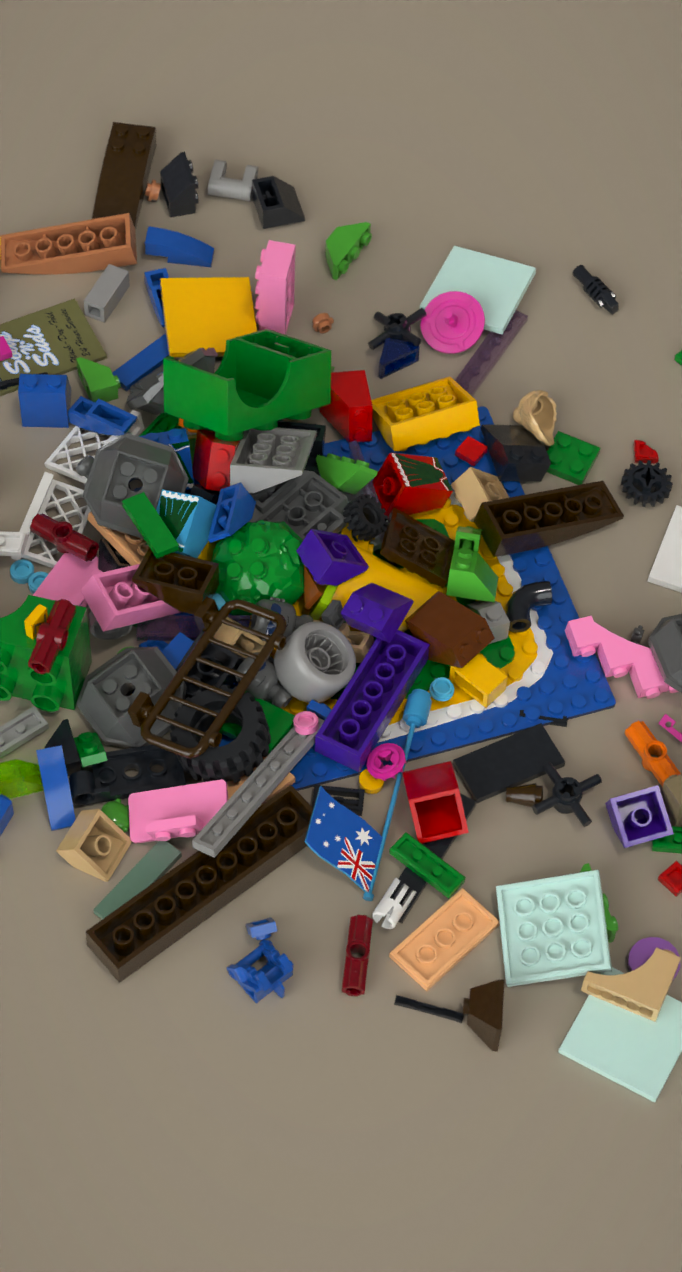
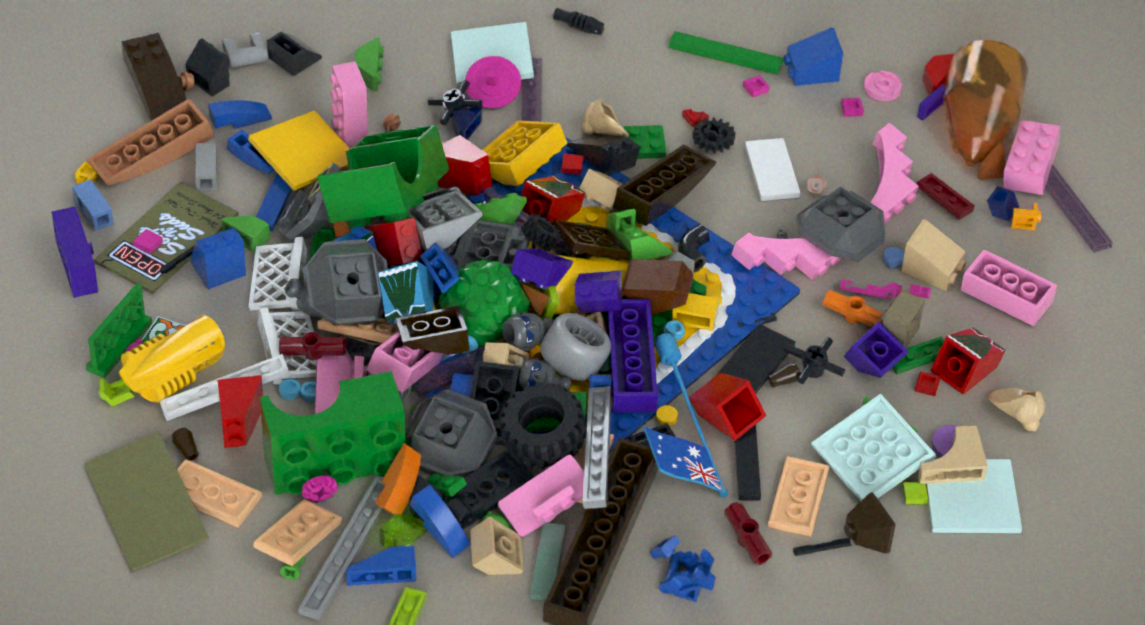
camera: 30 degrees left, 10 degrees down
(34, 621) = (364, 393): yellow tile -> none
(43, 725) = (399, 481): none -> orange slope
(52, 636) = (384, 399): dark red piece -> none
(100, 417) = (275, 252): blue slope -> none
(150, 525) = (387, 300): green tile -> none
(208, 620) = (475, 347): dark brown bar -> none
(306, 723) = (597, 392): bright pink tile -> none
(332, 614) = (565, 305): dark grey tile -> none
(386, 752) = (665, 391): dark pink gear -> none
(391, 907) = (750, 486): white arm -> none
(427, 865) = (752, 451): green tile -> none
(570, 998) = (915, 493): none -> lime tile

